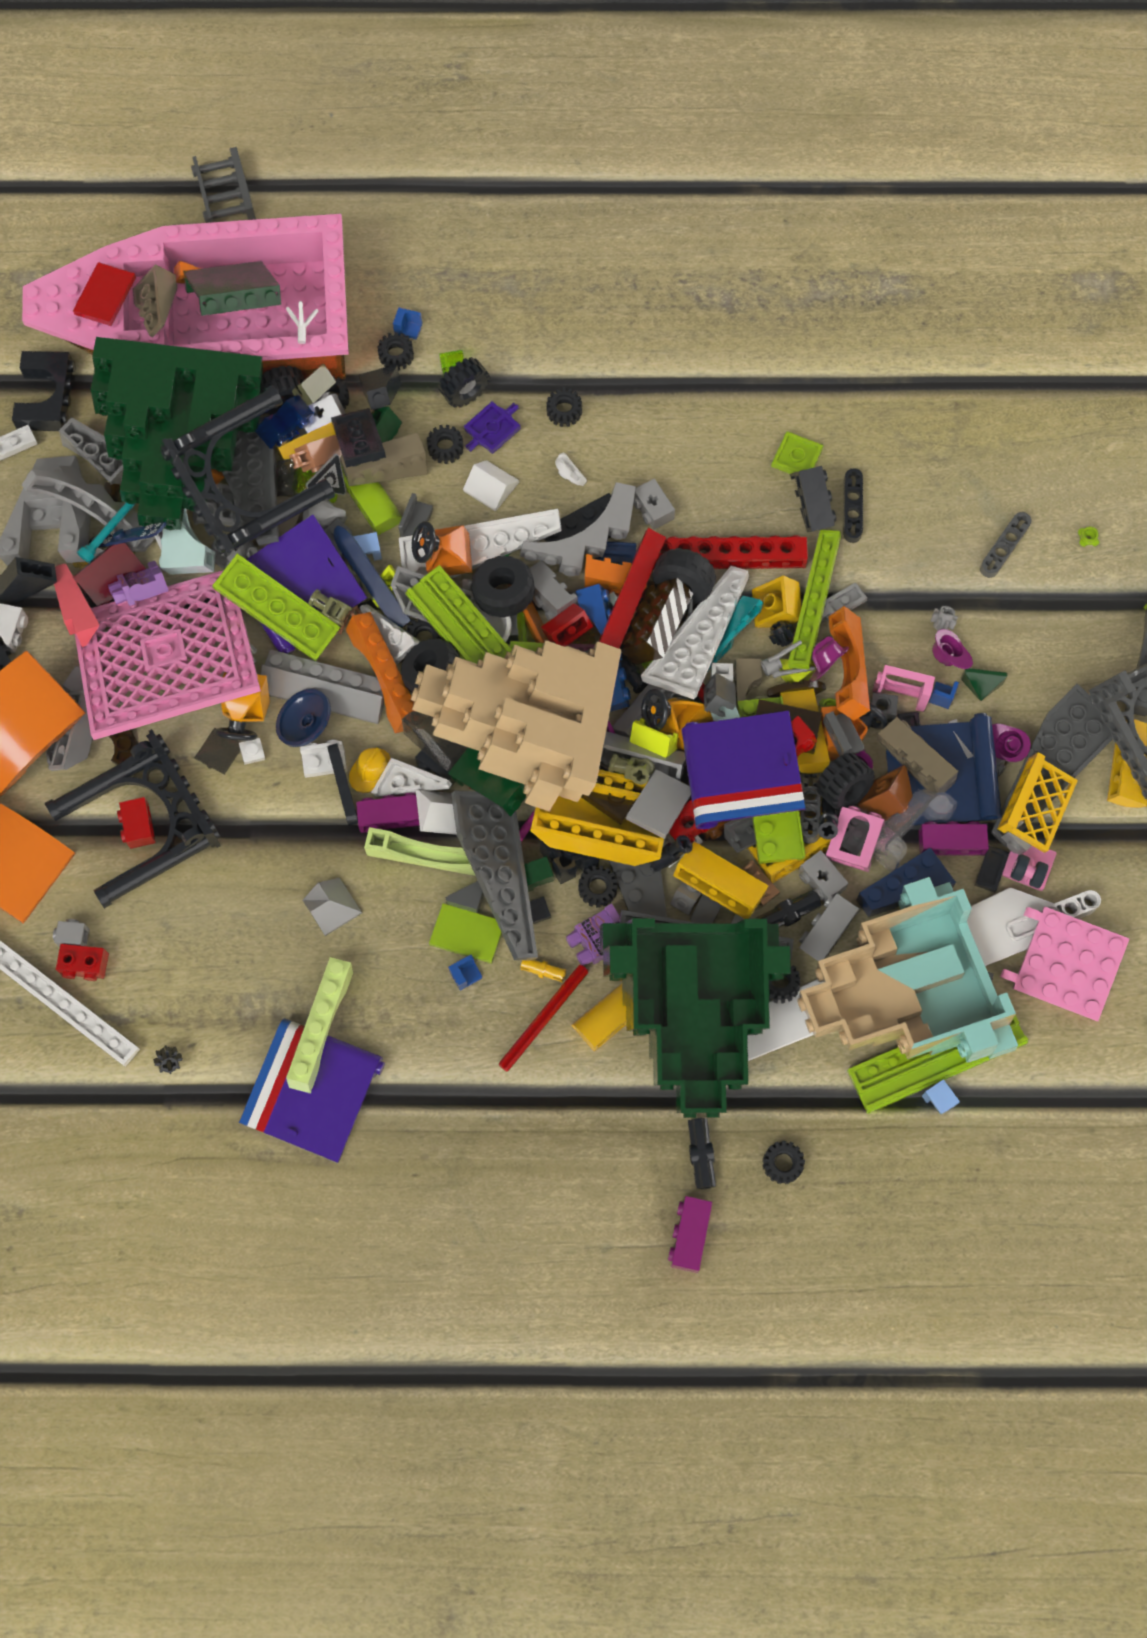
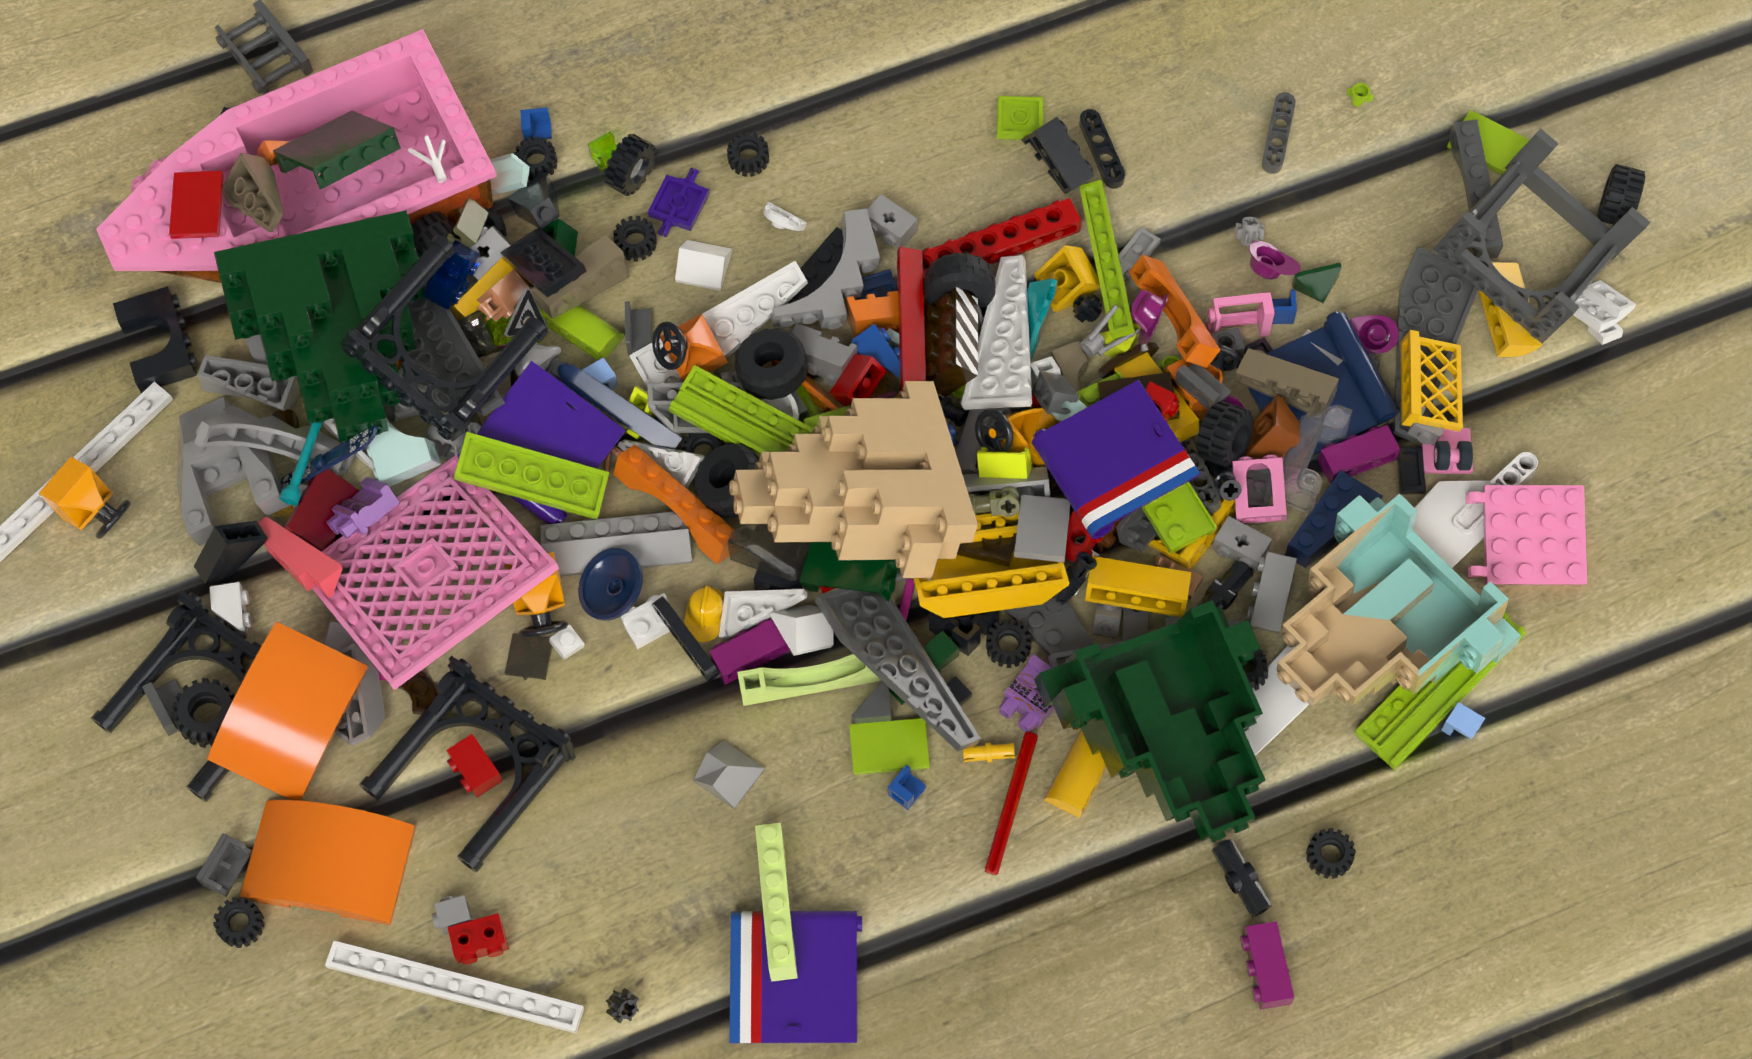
camera: 20 degrees left, 5 degrees down
(333, 608) = (592, 454): olive connector -> none
(364, 355) = (511, 174): none -> light aqua panel

